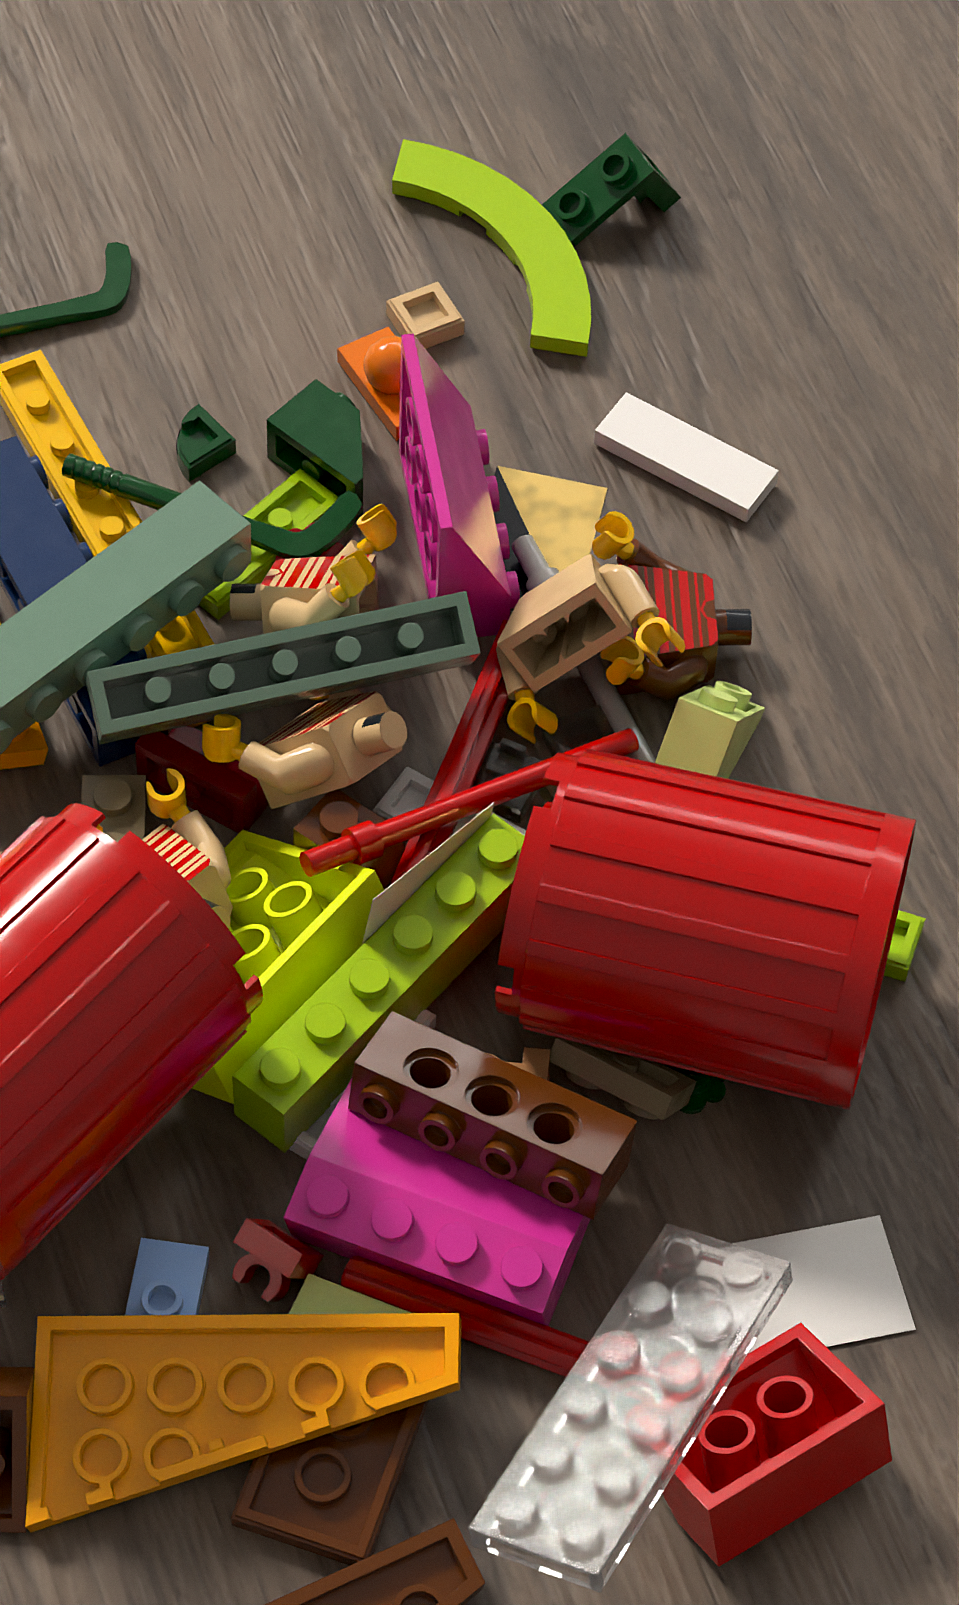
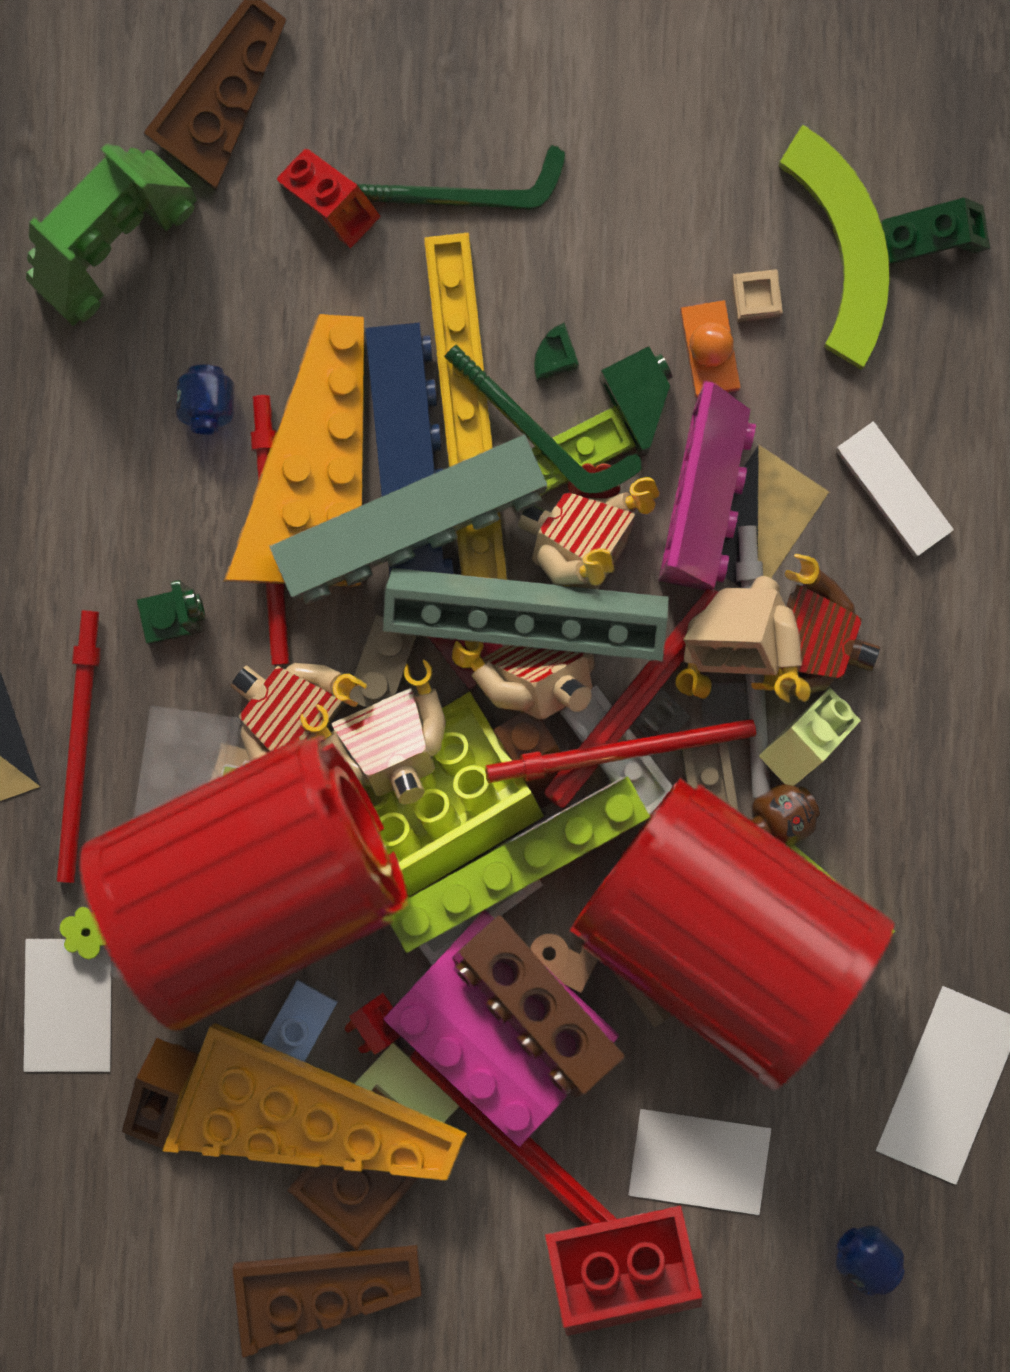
camera: 25 degrees right, 30 degrees up
(631, 1407) = (552, 1227): clear plate -> none

